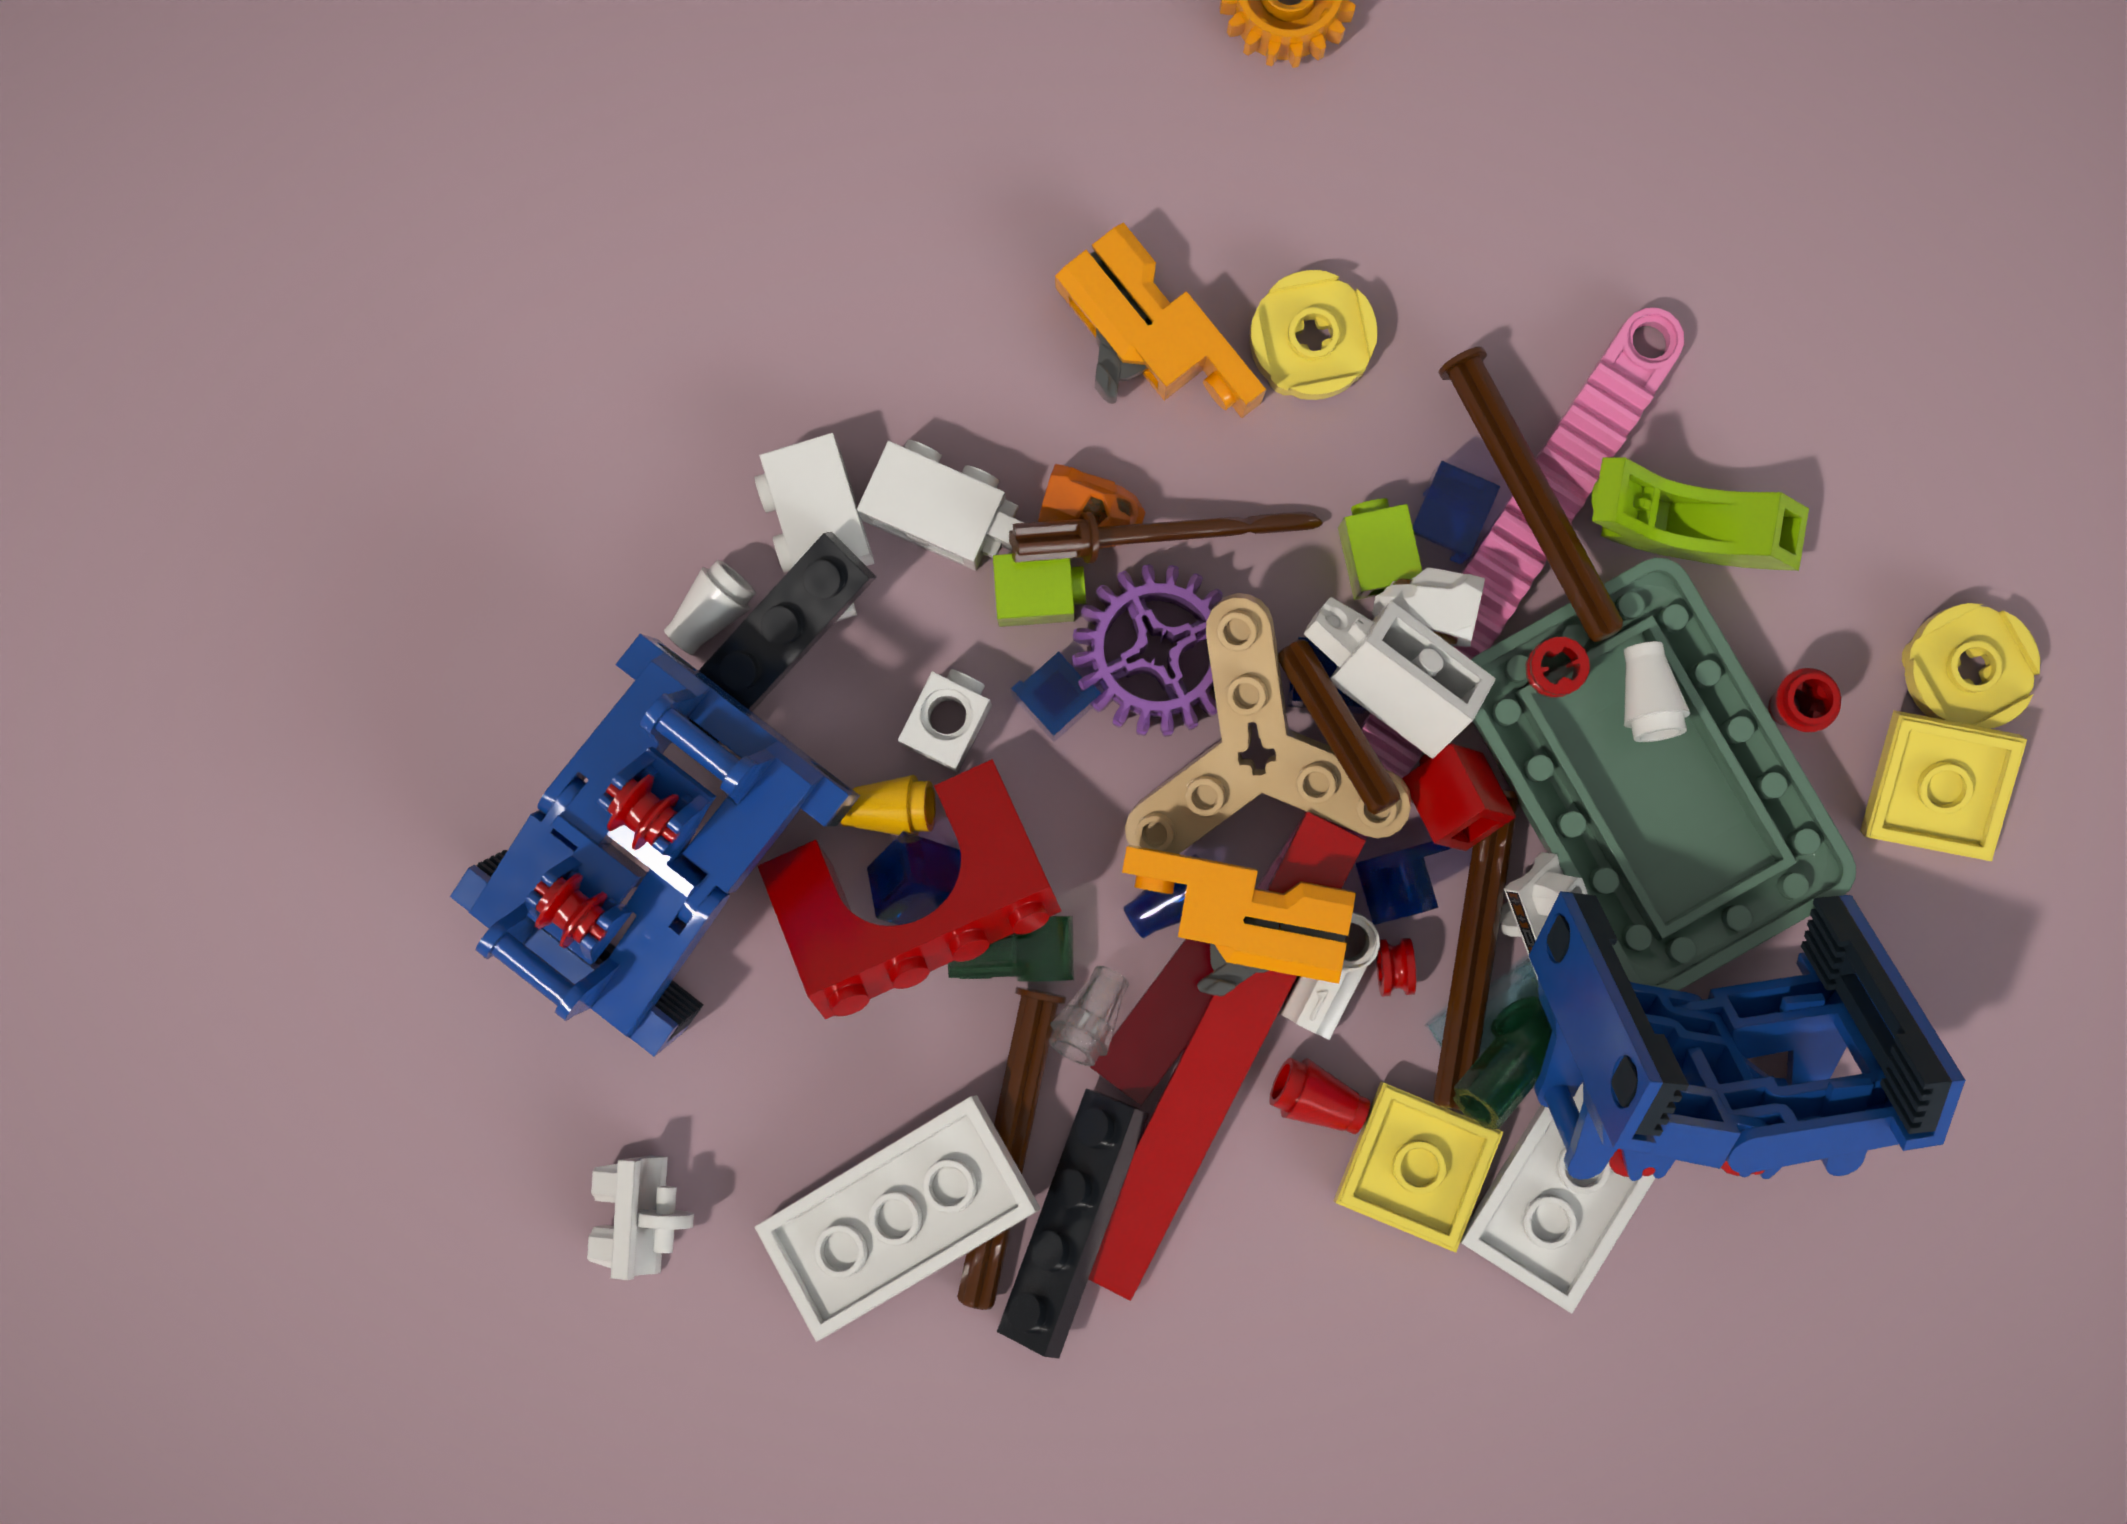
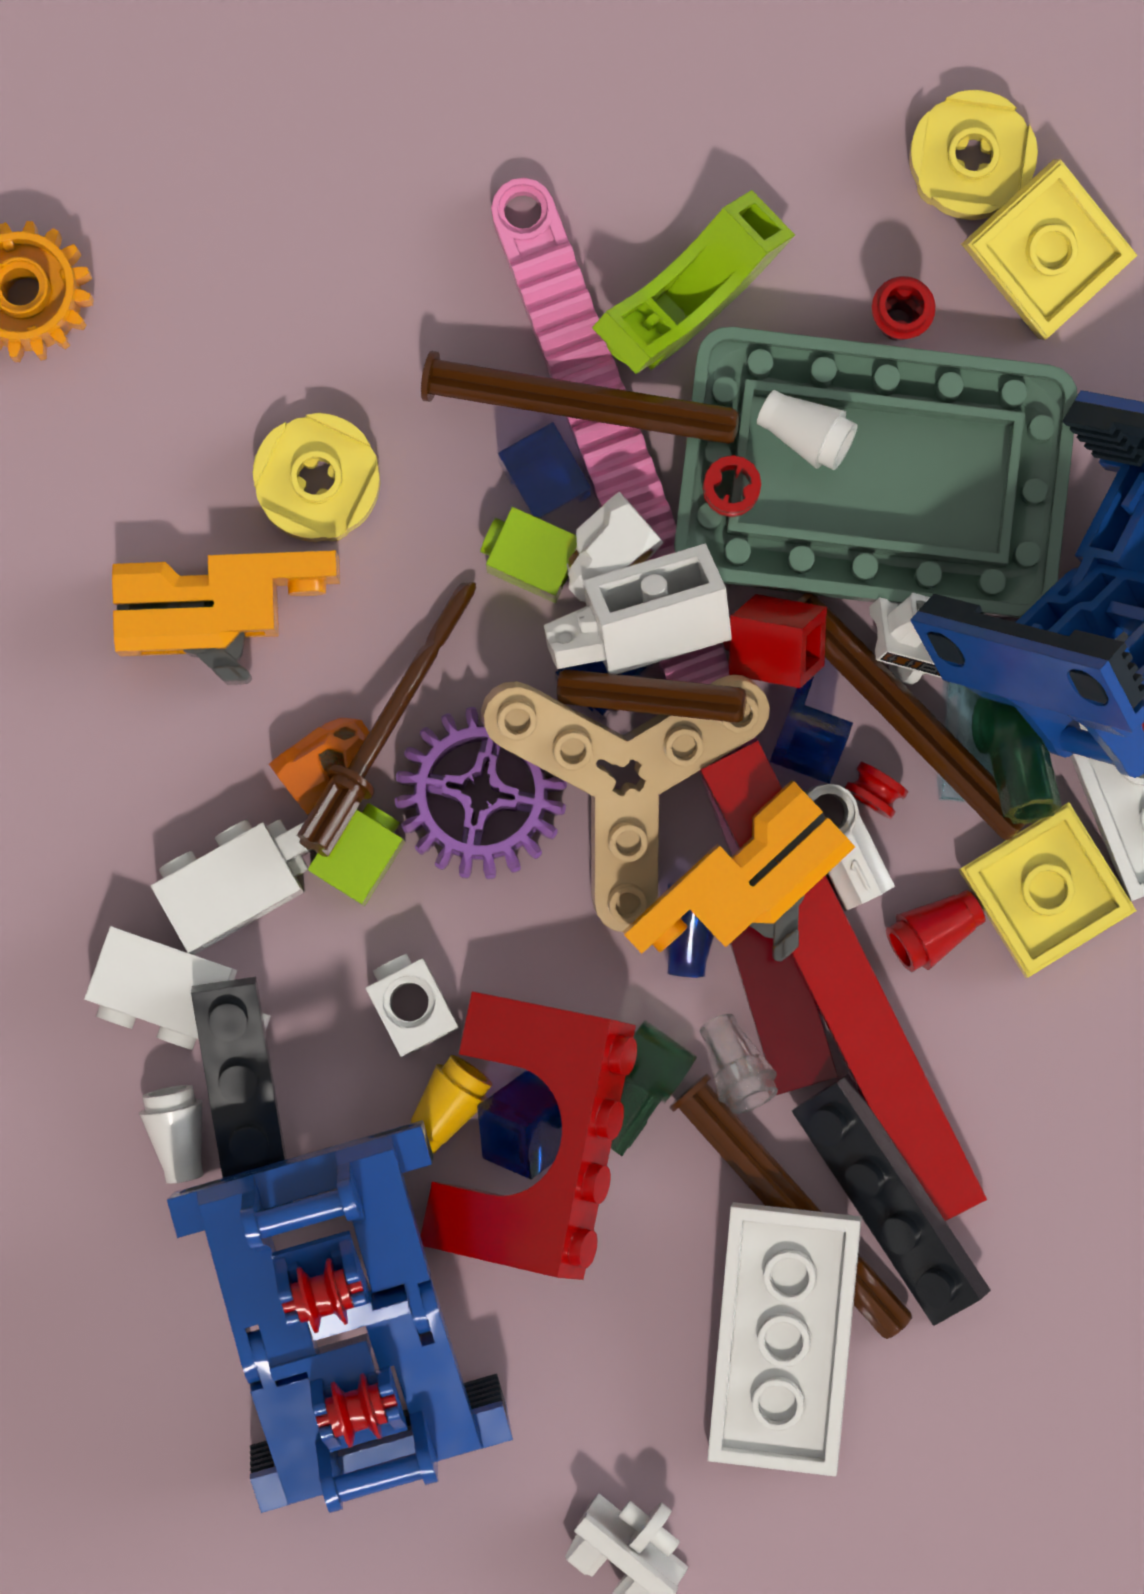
camera: 60 degrees left, 0 degrees up
(1054, 696) = (456, 903): clear blue panel -> none

